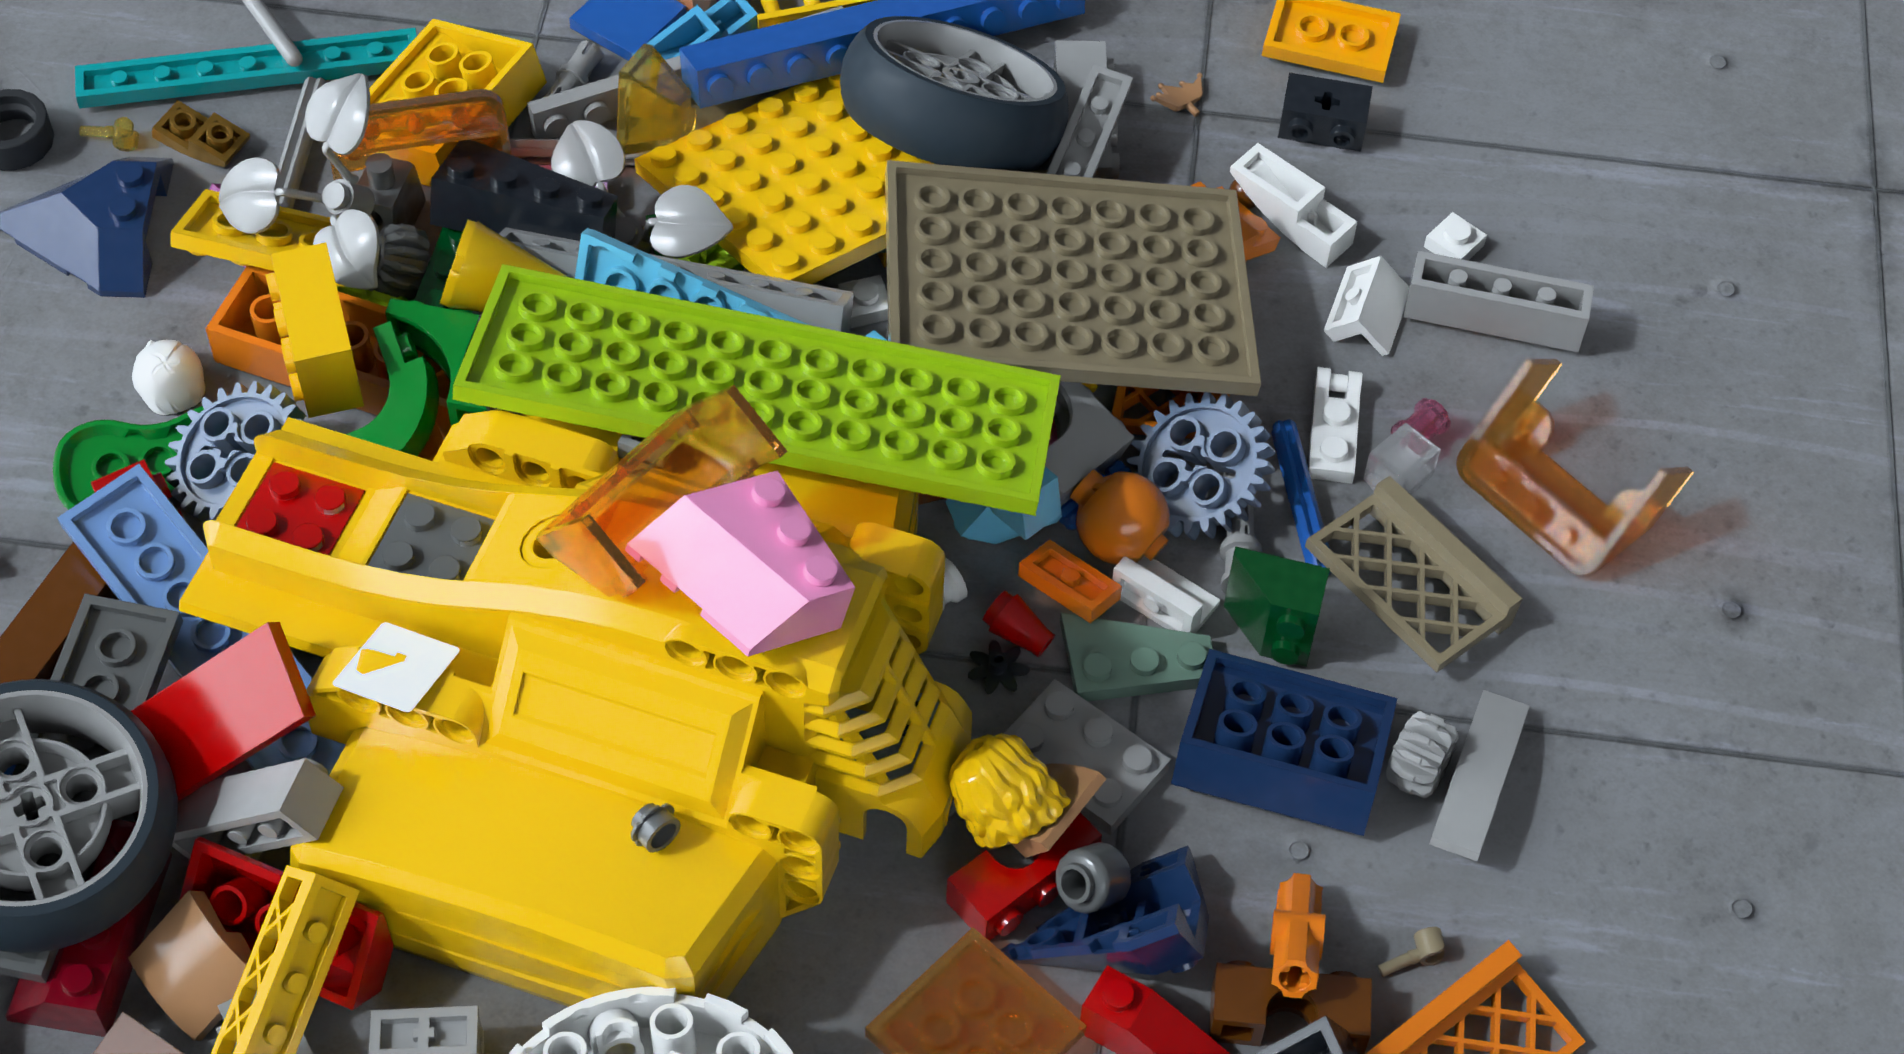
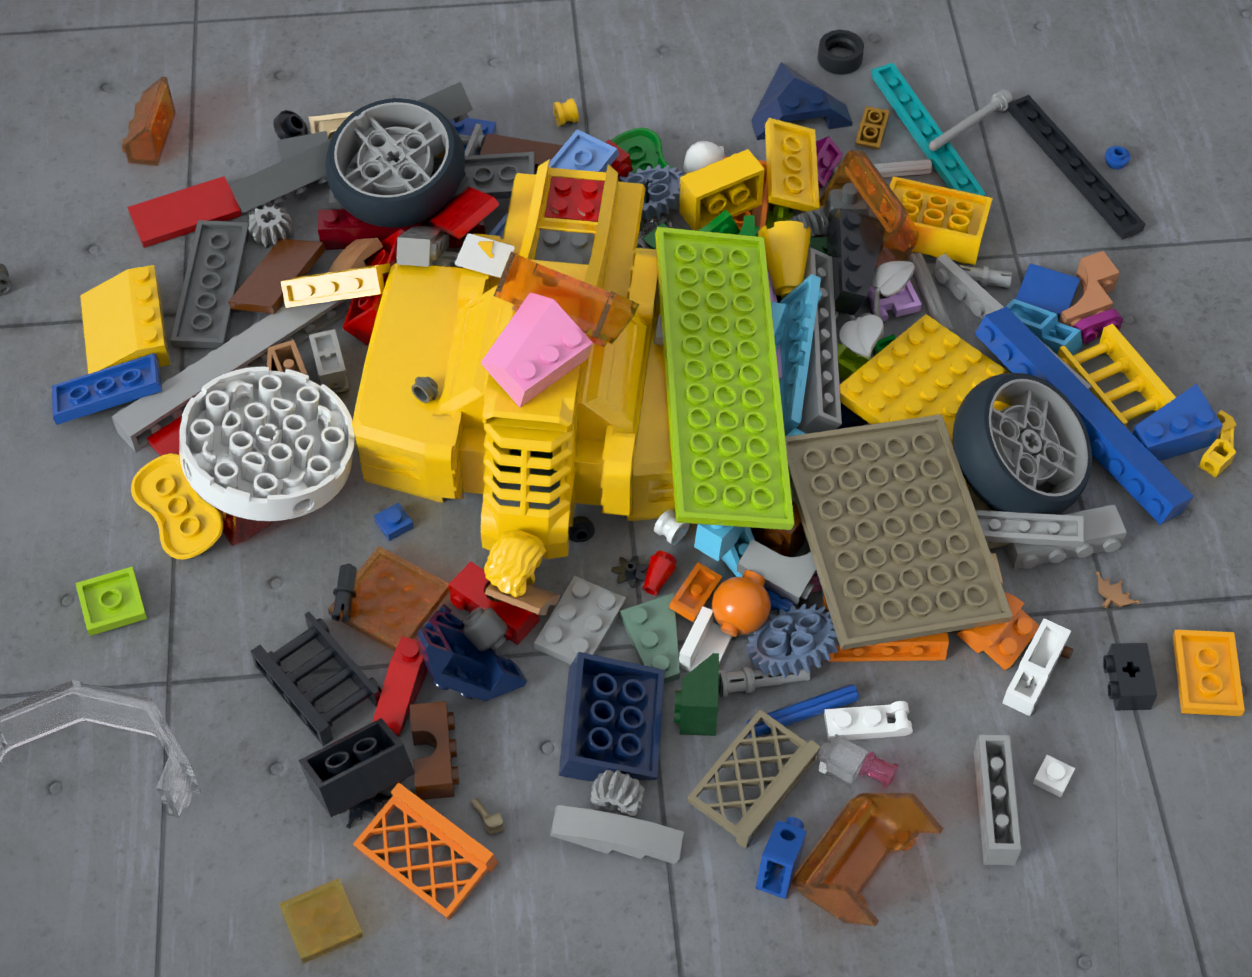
camera: 80 degrees right, 0 degrees up
(122, 134) = (858, 97): clear yellow hand -> none
(250, 190) = (821, 181): plant -> none
(652, 103) = (961, 304): clear yellow slope -> none
(806, 1003) = (393, 521): none -> blue plate
(1297, 936) = (471, 738): orange piece -> none
(1369, 304) = (964, 725): white panel -> none
(1552, 567) = (784, 848): none -> blue torso

